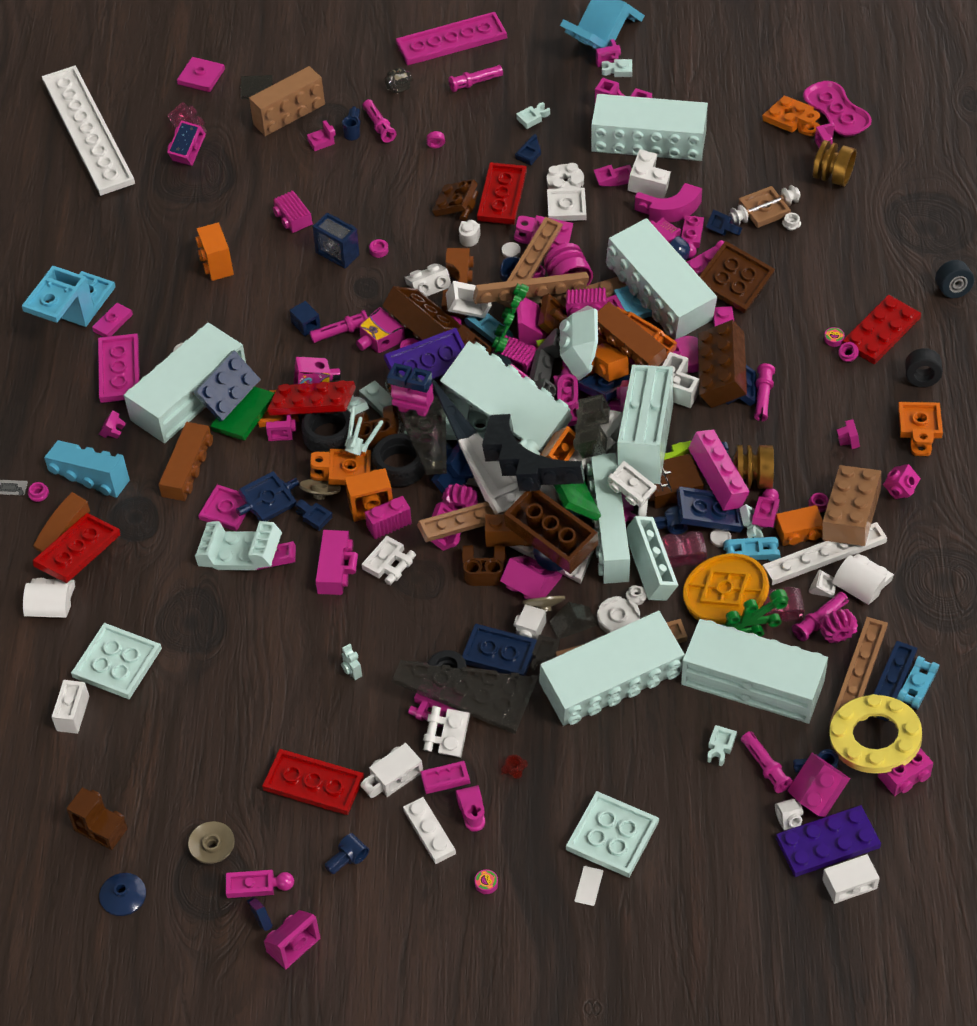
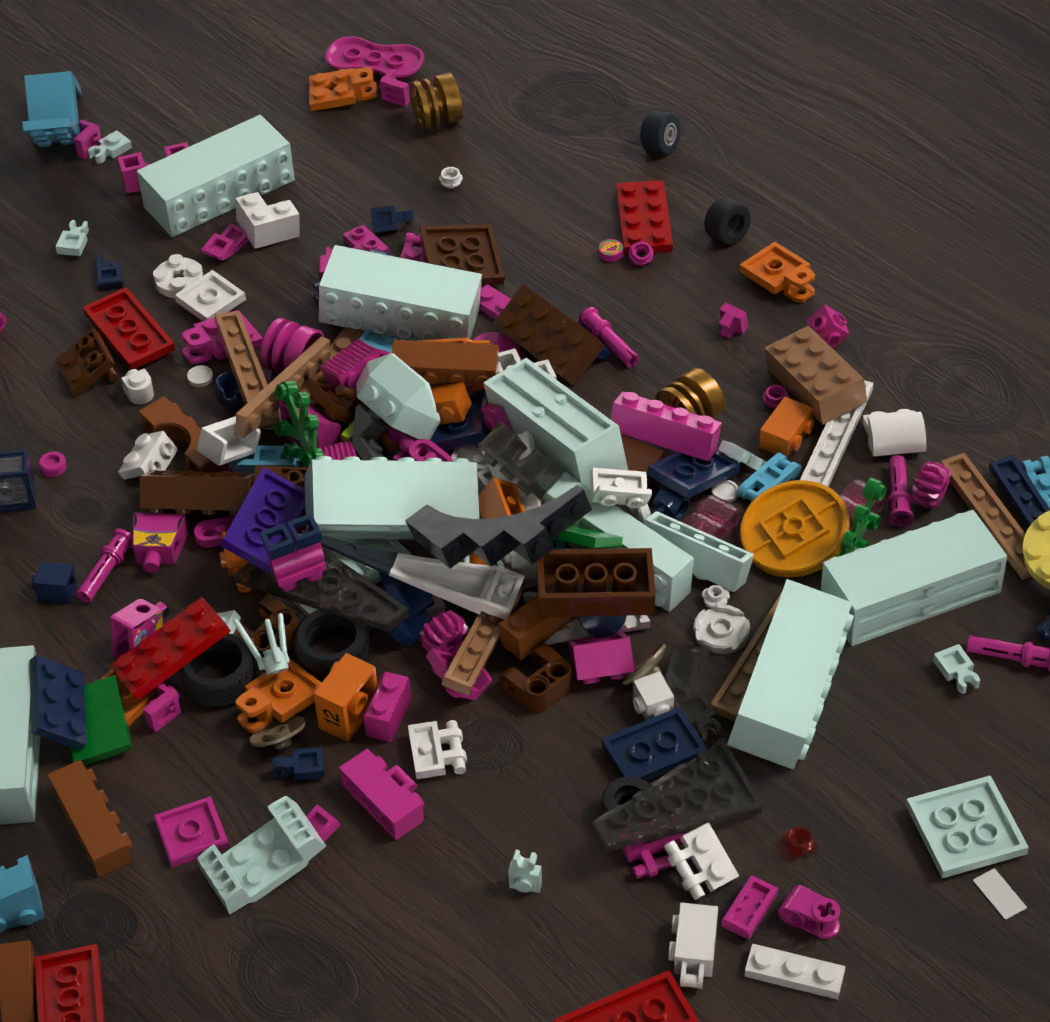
camera: 45 degrees left, 5 degrees down
(267, 497) = (231, 784): dark blue plate -> none
(376, 396) = (242, 602): light aqua plate -> none
(486, 881) = (908, 971): tile -> none
(671, 208) = (313, 242): dark pink arch -> none
(764, 206) = (410, 178): medium nougat plate -> none
(766, 508) = (743, 433): dark pink plate -> none
(823, 585) = (866, 464): white slope -> none

